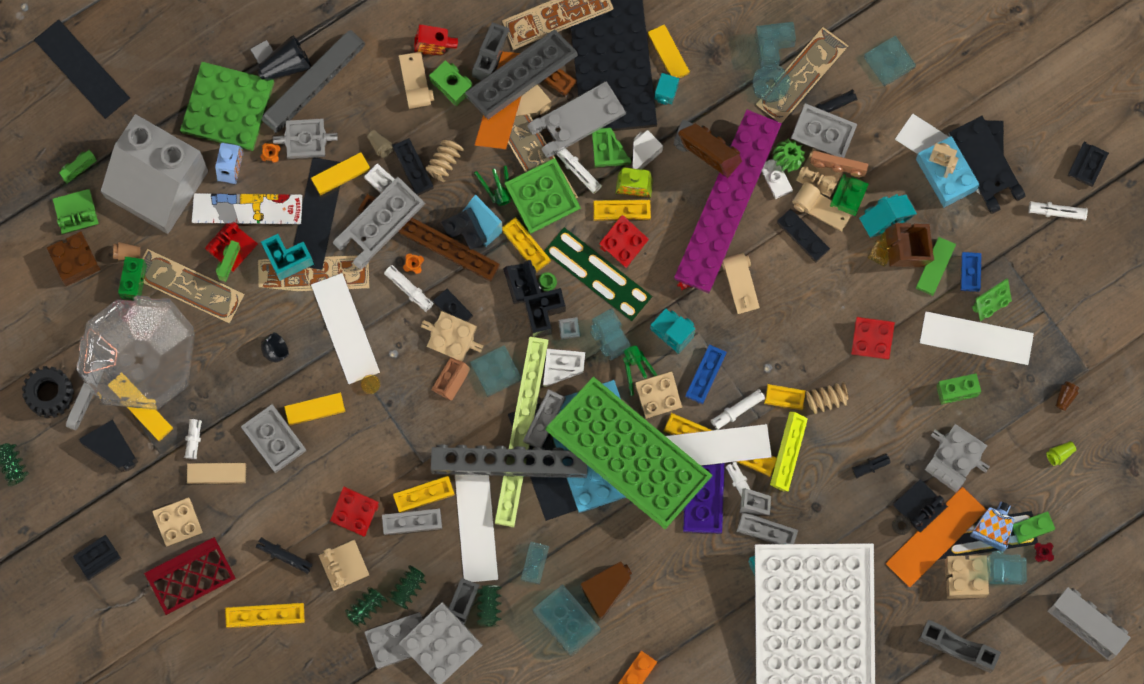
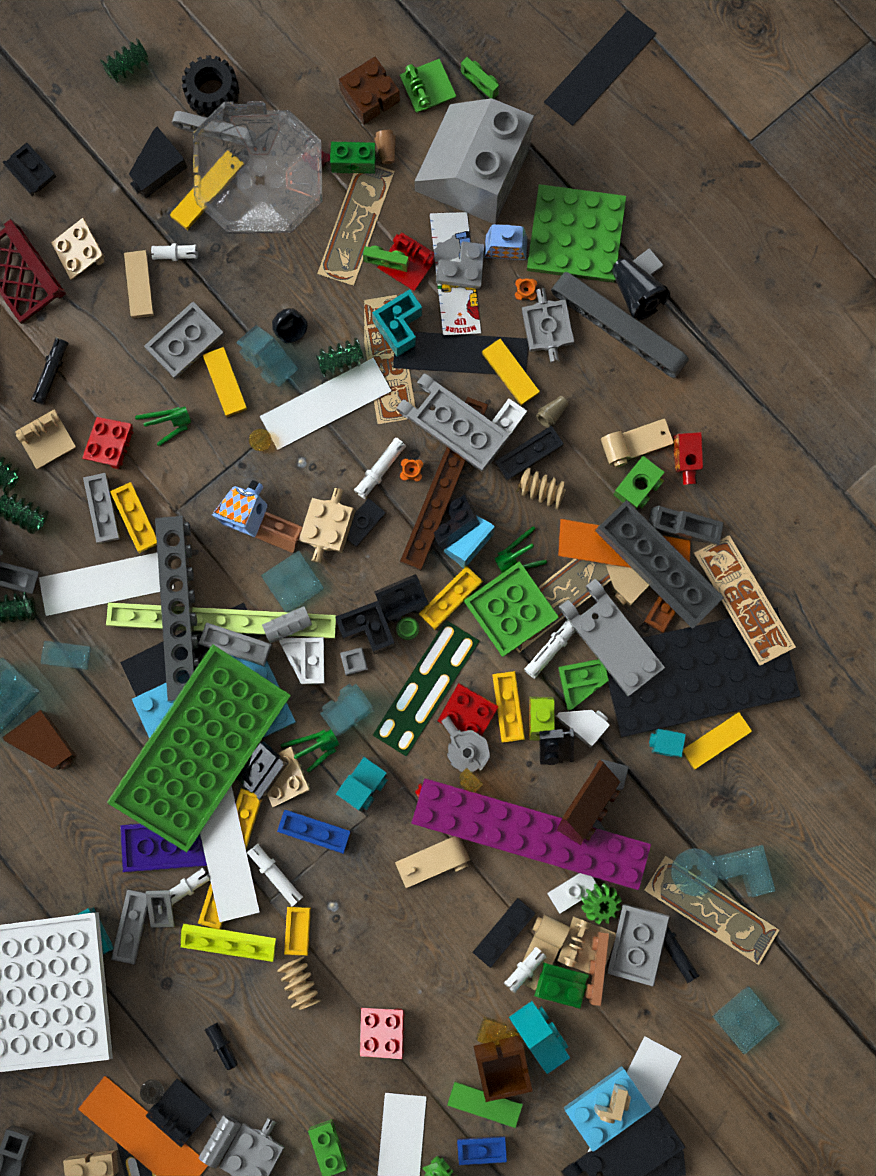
camera: 85 degrees right, 5 degrees up
(248, 199) = (466, 272): none -> light grey plate
(298, 367) = (267, 354): none -> clear light blue brick
(307, 308) = (341, 356): none -> clear green piece
(342, 450) = (178, 416): none -> green plant
(430, 402) = (242, 509): none -> light blue torso
(533, 374) = (287, 624): none -> light grey axle
(652, 407) = (261, 770): none -> plate
(653, 245) = (466, 748): none -> light grey piece
(659, 173) = (556, 746): none -> black plate
(680, 242) = (470, 781): none -> clear yellow plate
(834, 220) = (525, 970): none -> white pin

